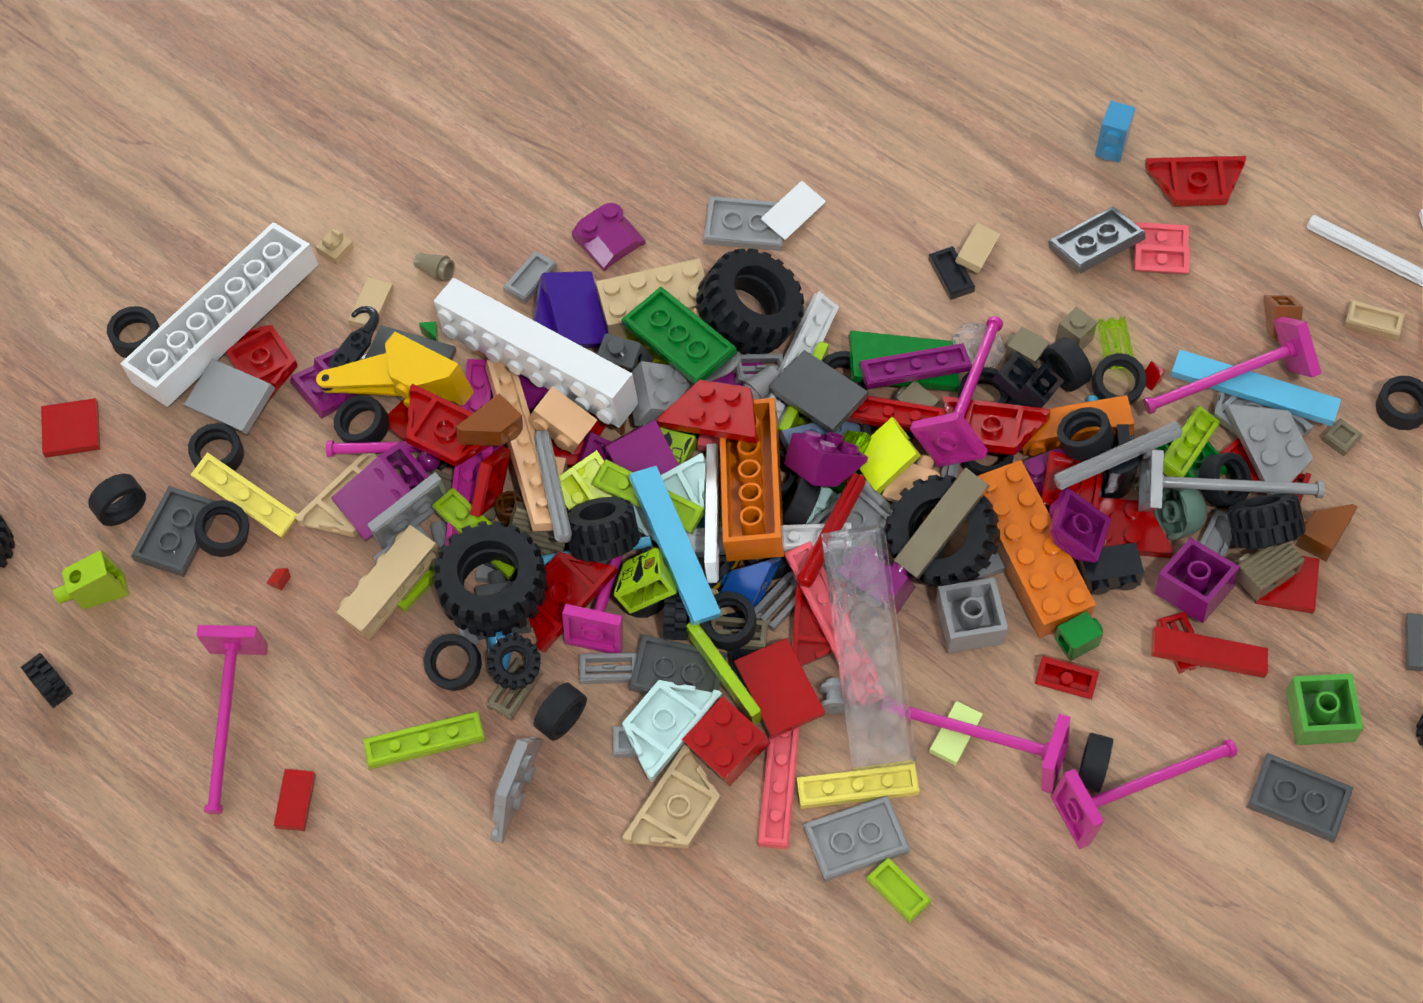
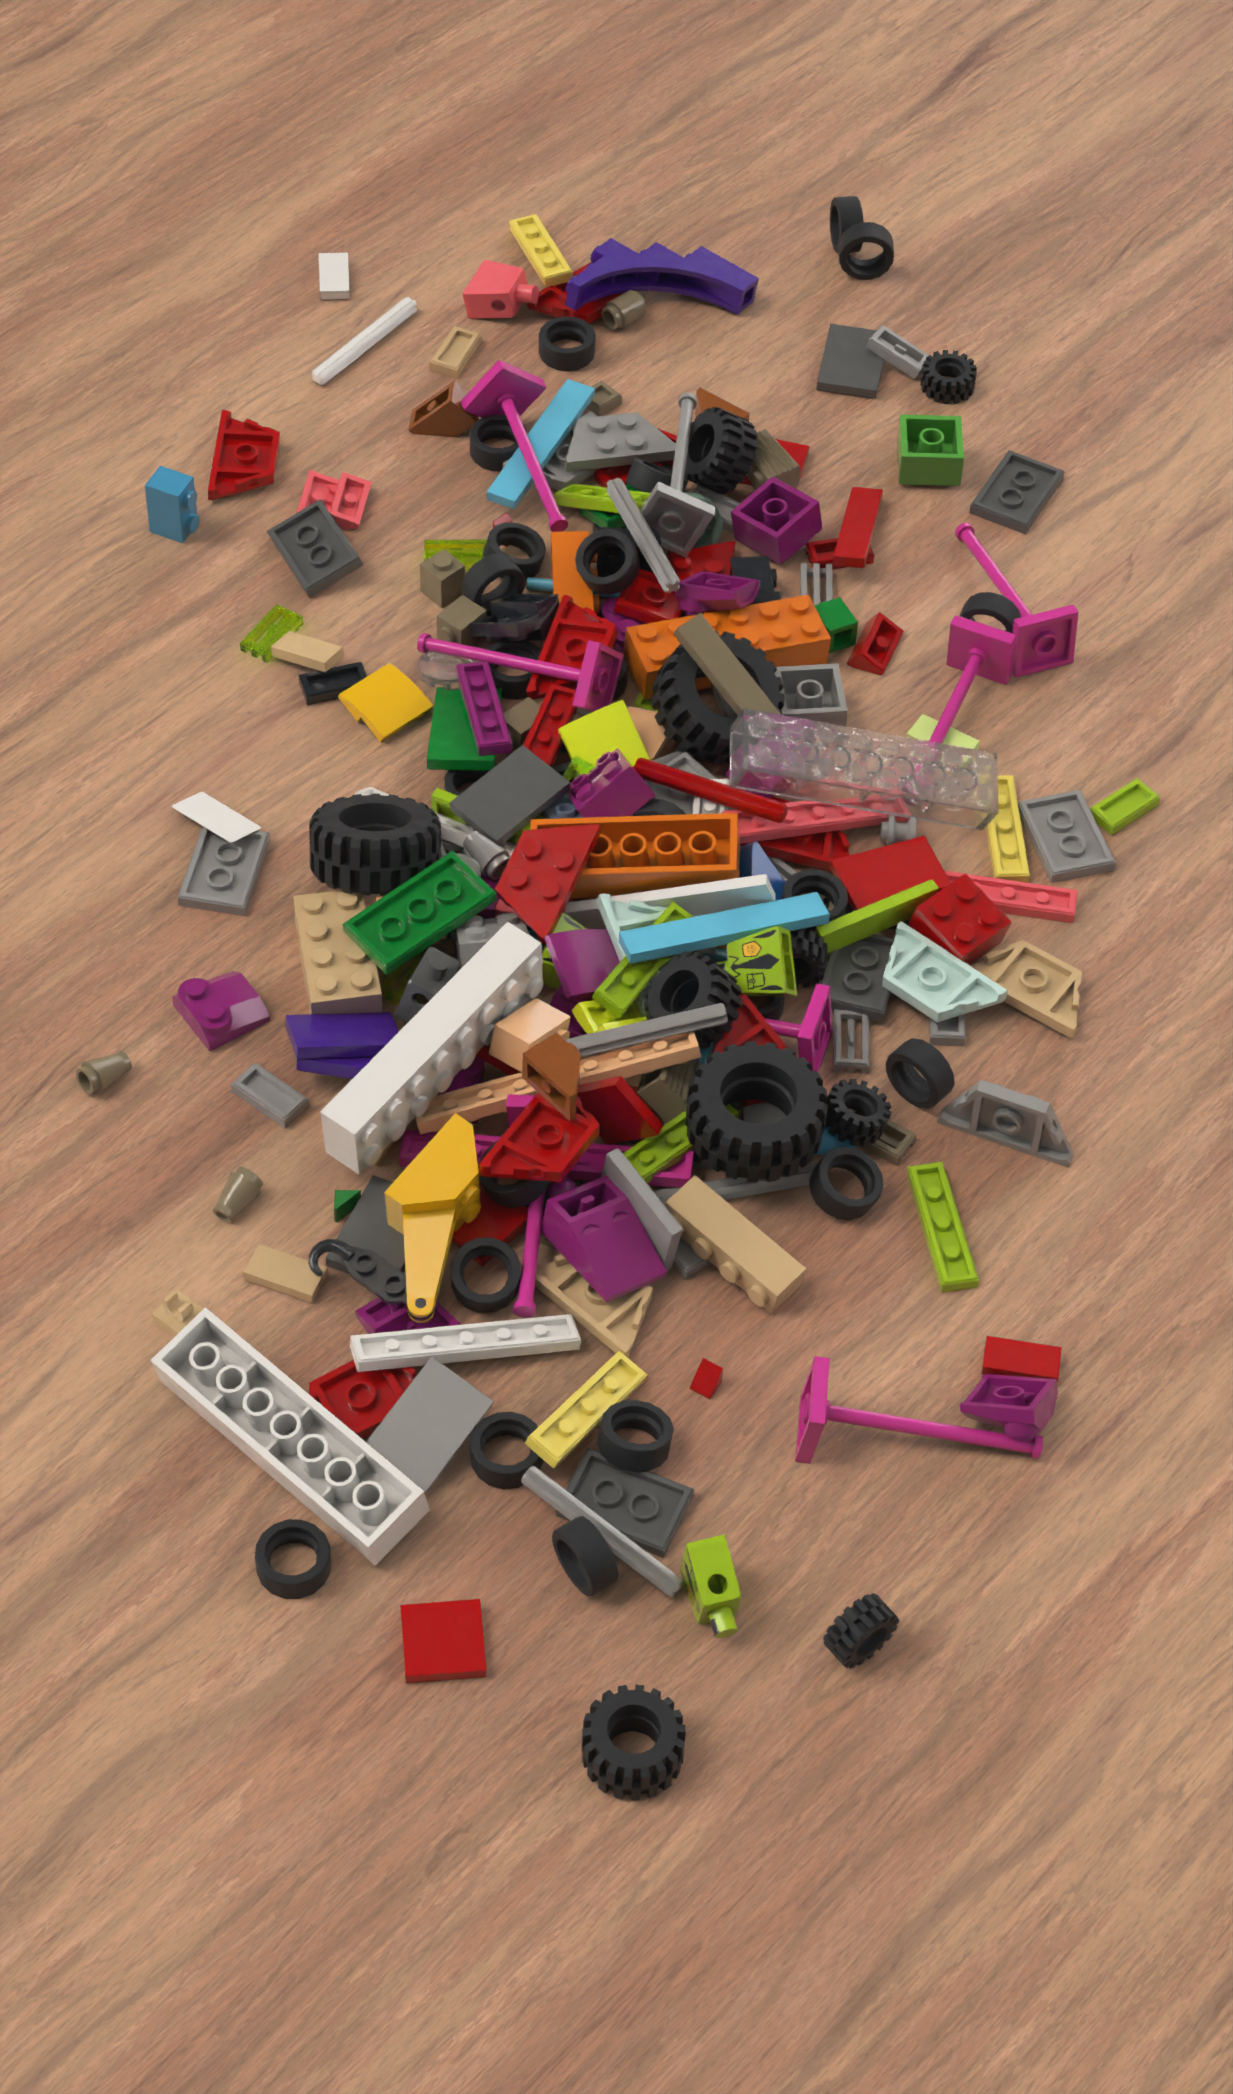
camera: 90 degrees left, 10 degrees down
(147, 508) = (618, 1542): none -> light grey axle
(240, 784) = (1014, 1403): none -> magenta slope
(301, 414) = (464, 1342): none -> white tile
(539, 171) = (100, 1073): none -> dark tan cone
(932, 307) = (386, 701): none -> yellow slope
(1007, 233) = (289, 622): none -> clear neon green tile
(1127, 621) = (816, 572): none -> light grey tile
(1259, 342) = (486, 428): none -> black tyre

